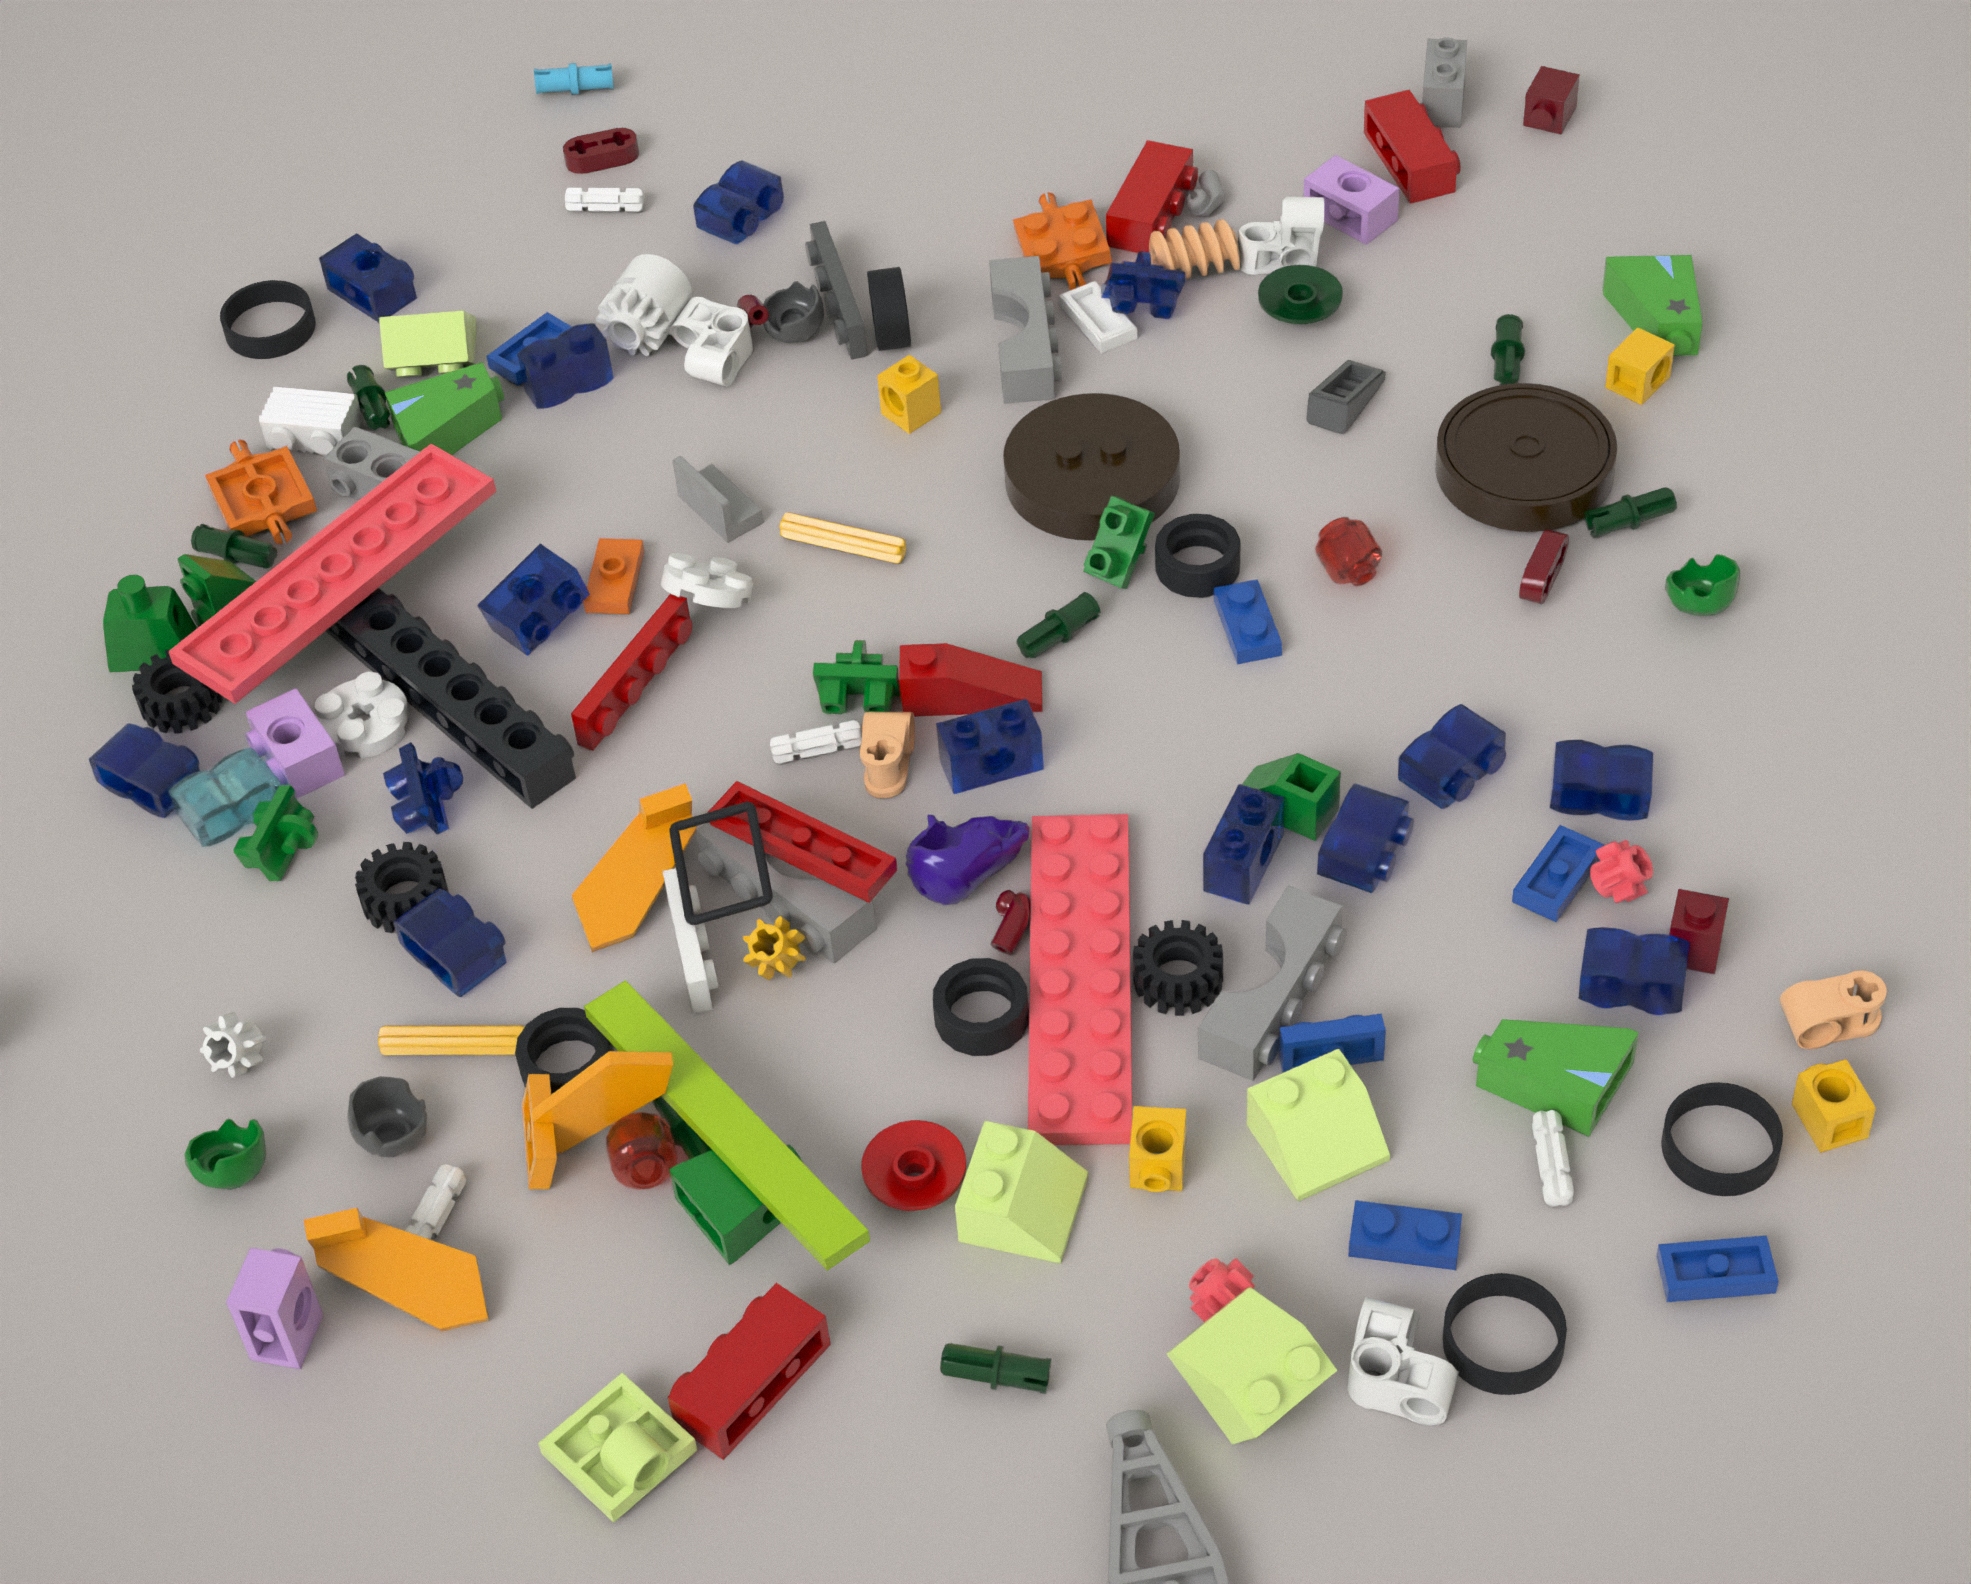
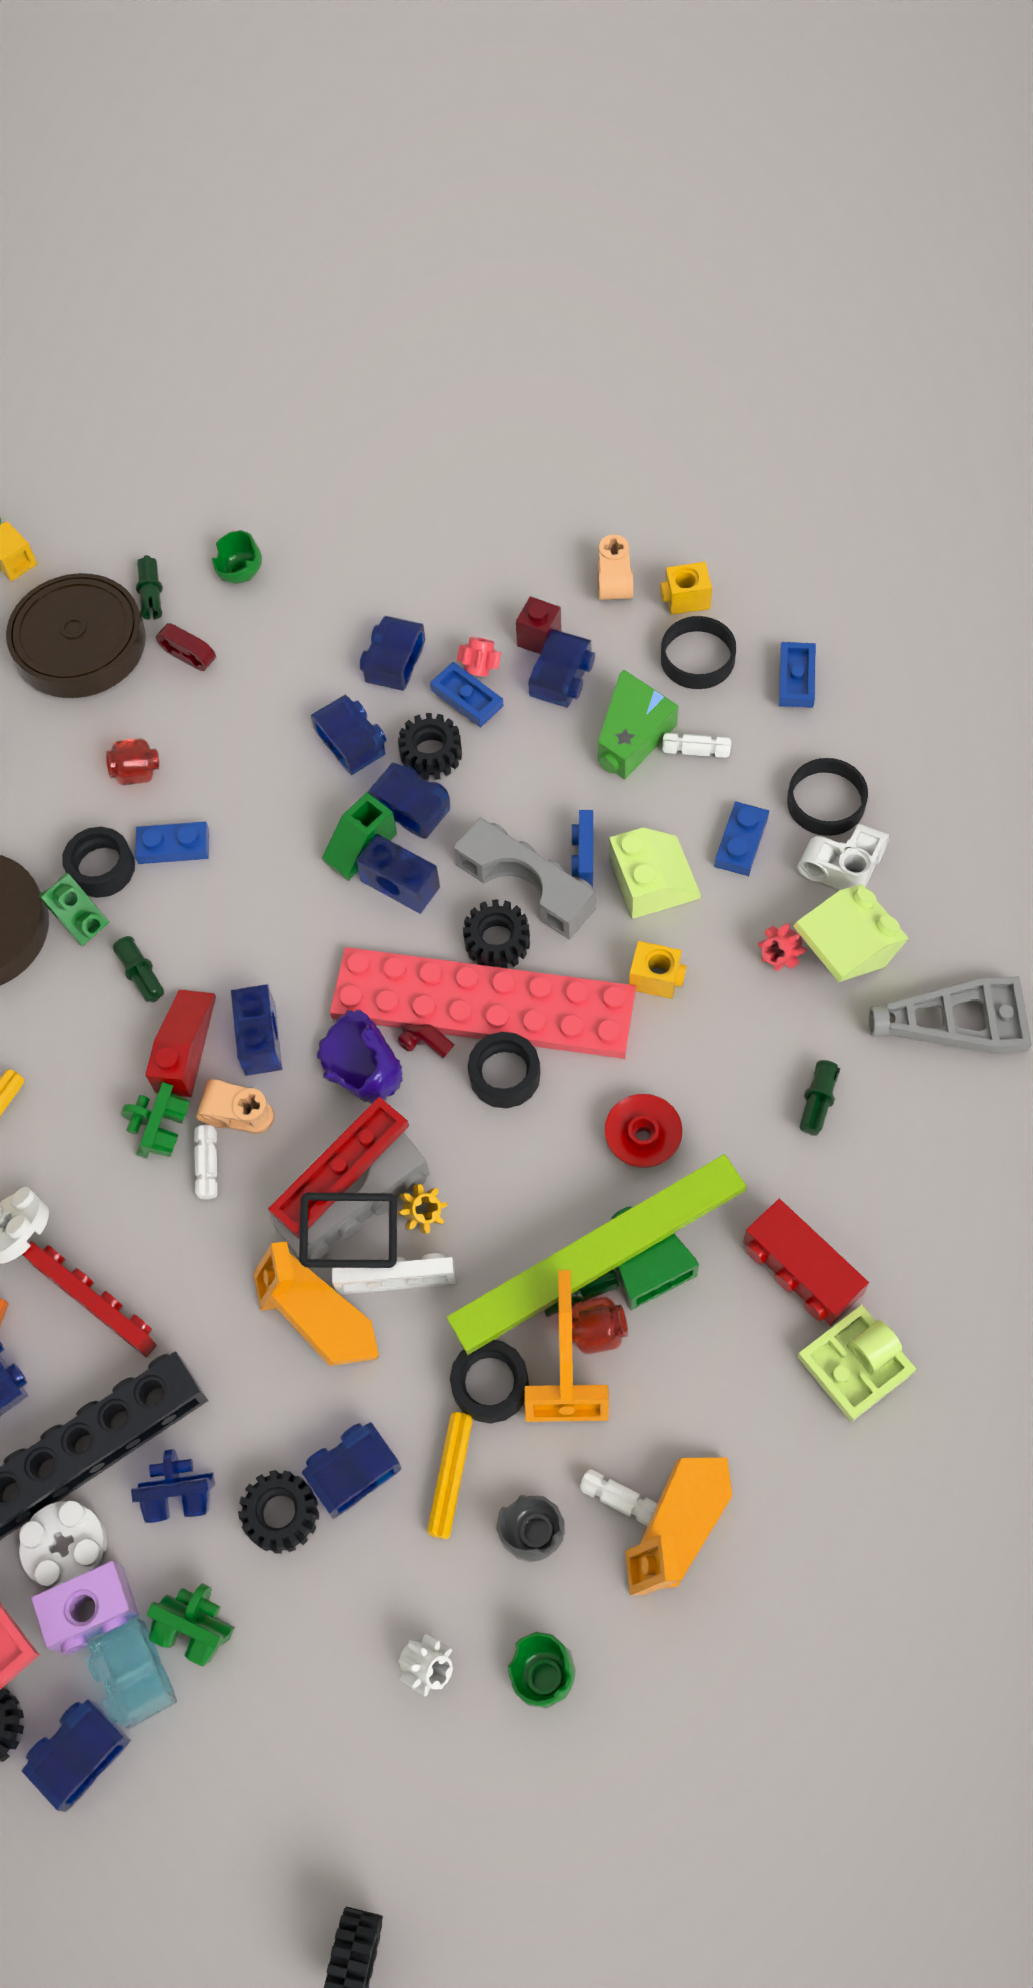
camera: 80 degrees left, 15 degrees up
(275, 1307) = (716, 1619): lavender brick -> none
(1019, 1194) = (677, 1067): yellowish green slope -> none
(1461, 826) = (427, 730): none -> black tyre

